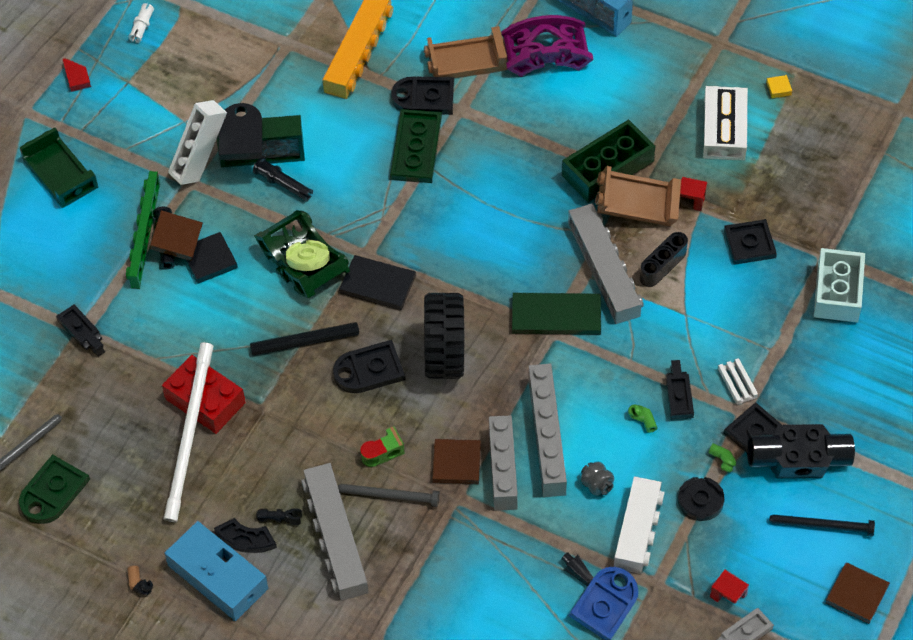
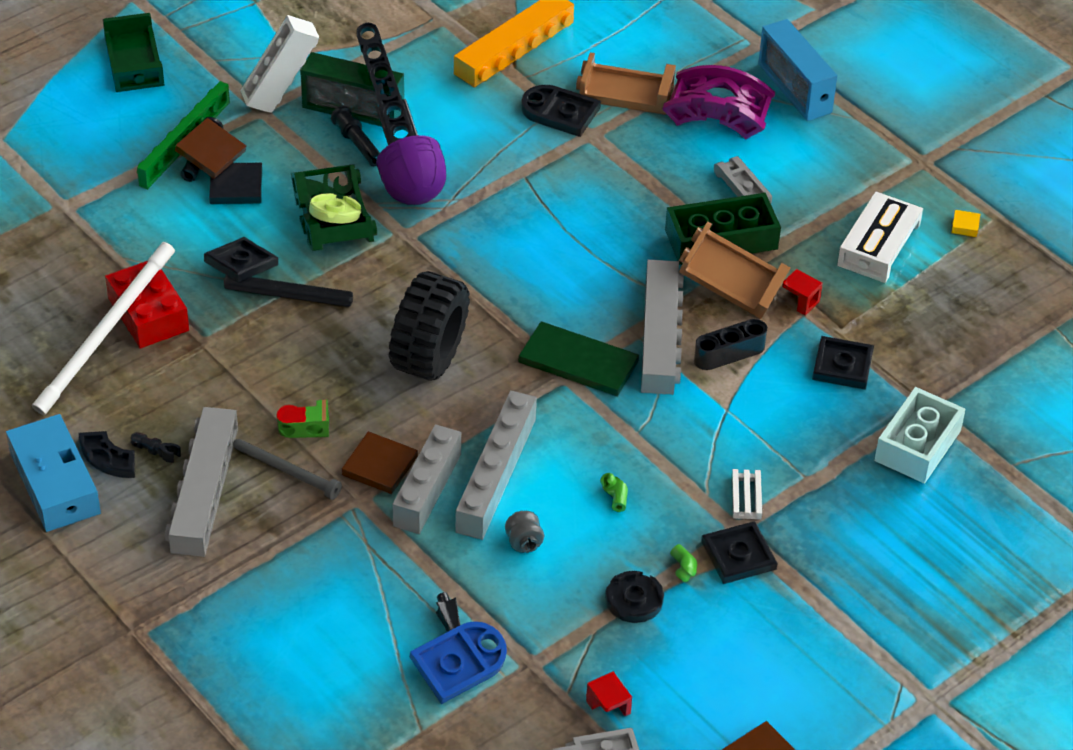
camera: 20 degrees right, 10 degrees down
(81, 329) = (61, 204): black hinge -> none
(241, 135) = (327, 70): black tile -> none
(254, 326) = (240, 259): none -> black tile
(349, 197) = (411, 165): none -> piece
(369, 368) = (339, 341): black tile -> none
(378, 282) = (396, 261): black tile -> none
(416, 146) = (521, 152): dark green tile -> none
(598, 110) = (740, 178): none -> light grey plate
(638, 524) = (543, 594): white brick -> none
(679, 392) = (670, 480): black hinge -> none
(800, 451) = (774, 584): black brick -> none
(824, 523) = (814, 695): black bar -> none

